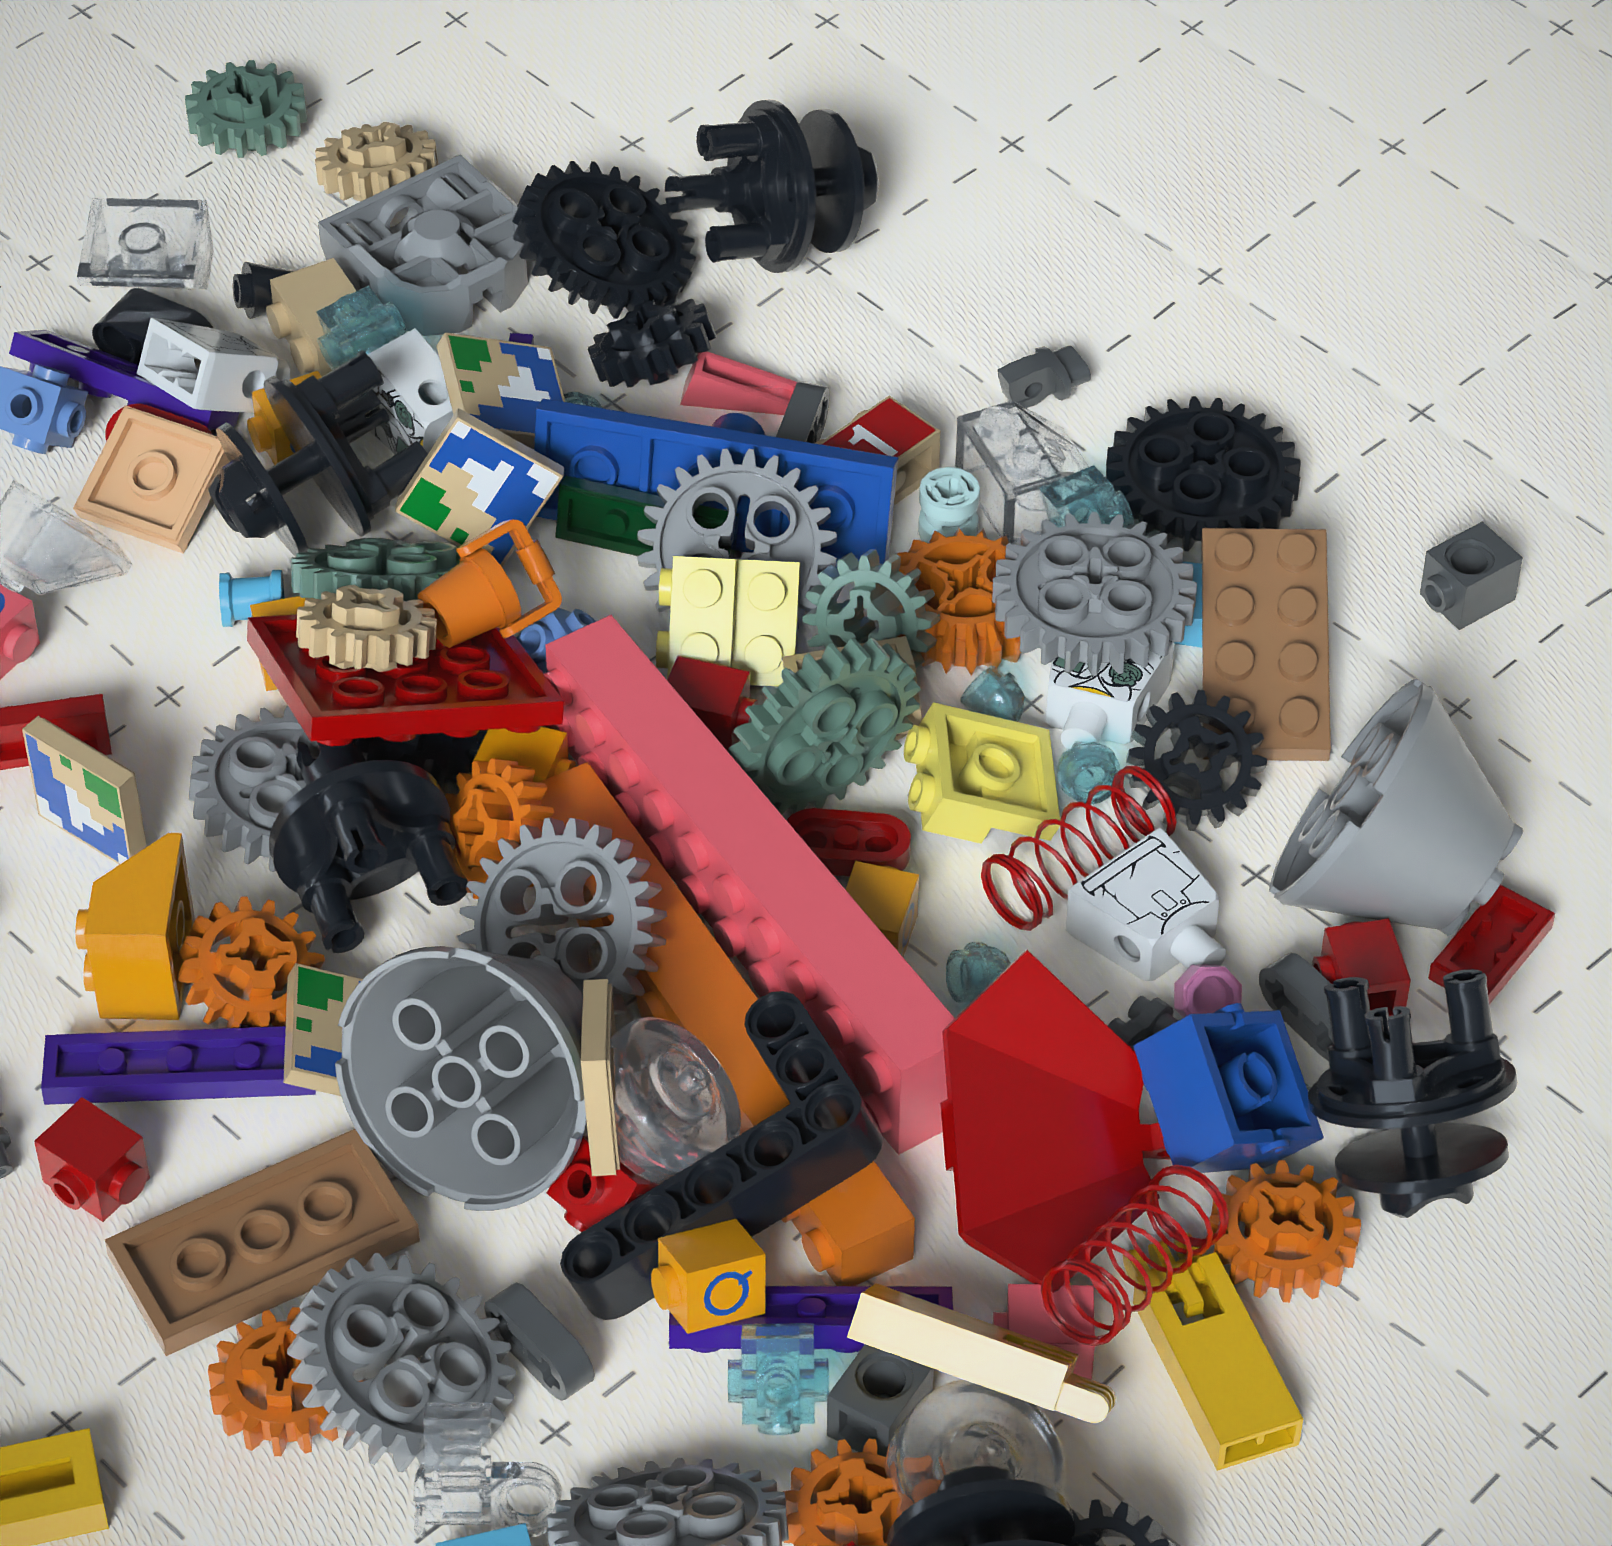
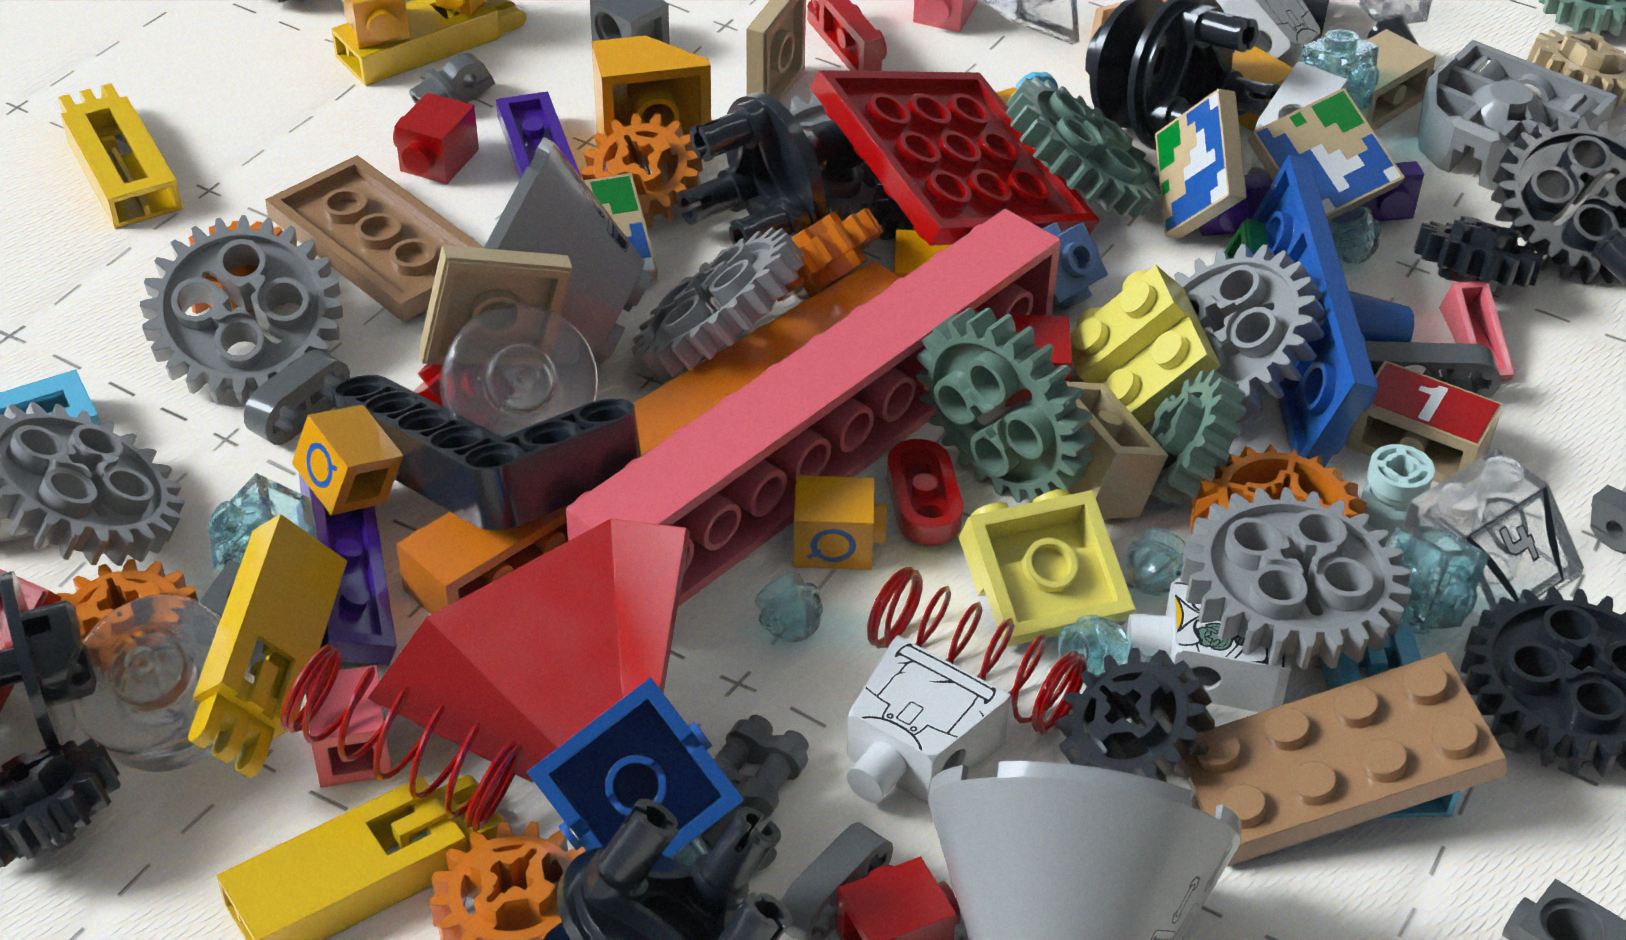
camera: 75 degrees right, 5 degrees down
(366, 628) = (960, 101): tan gear -> none
(460, 1477) = (129, 394): clear piece -> none
(481, 596) = (1050, 163): orange piece -> none
(1205, 990) = (818, 789): bright pink tile -> none

